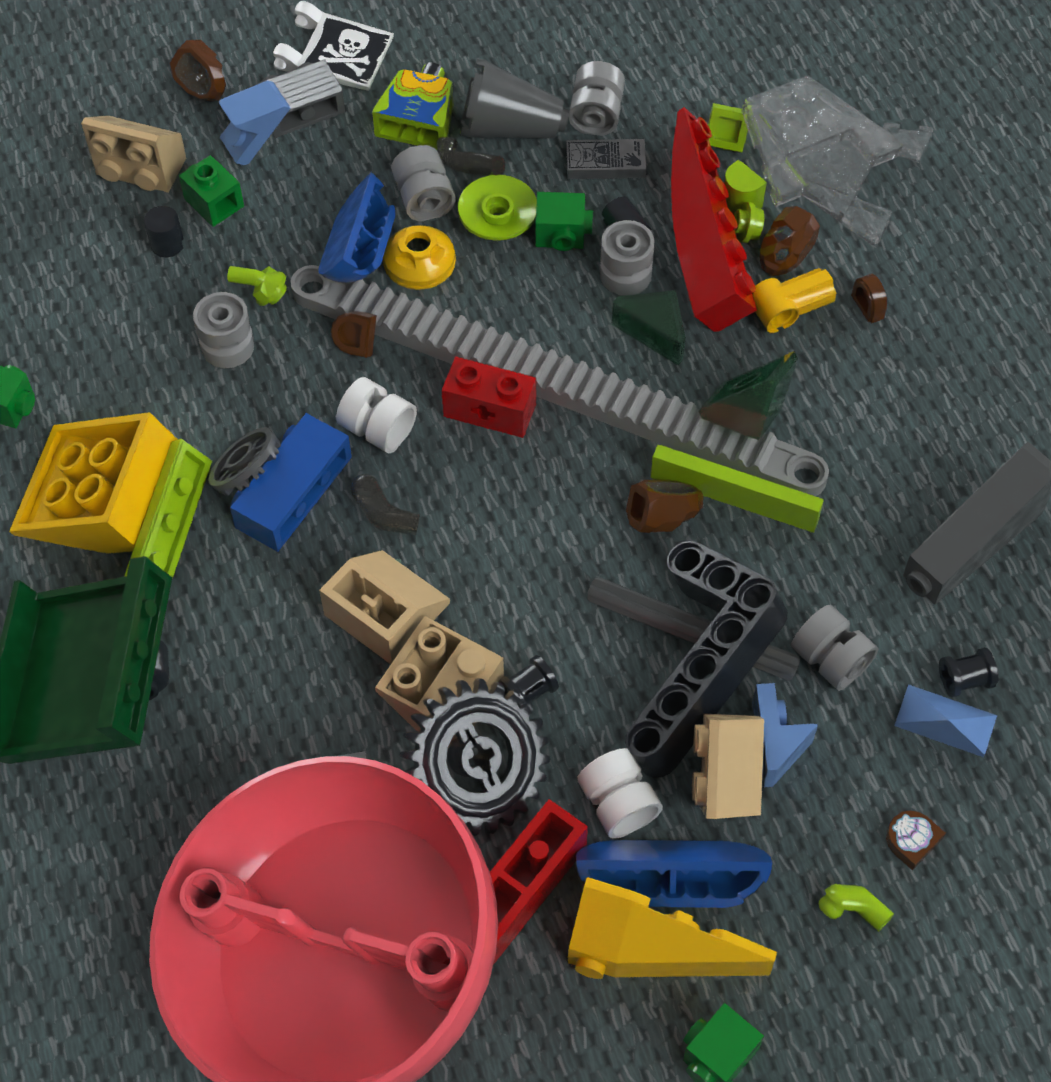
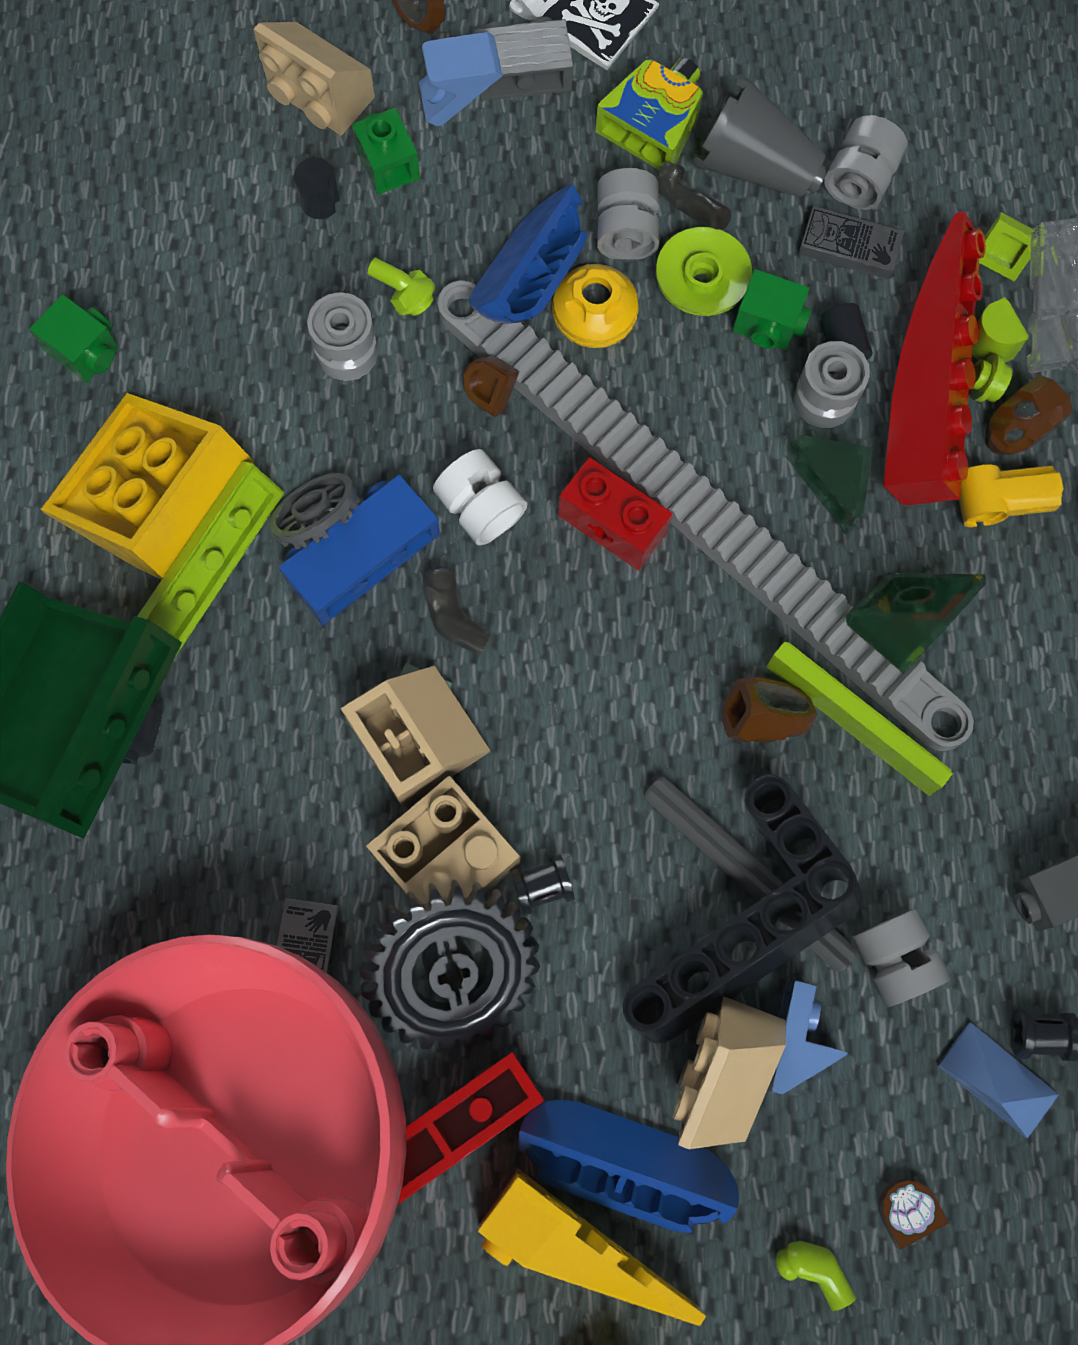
camera: 15 degrees right, 15 degrees up
(616, 787) = (598, 1056): white wheel -> none

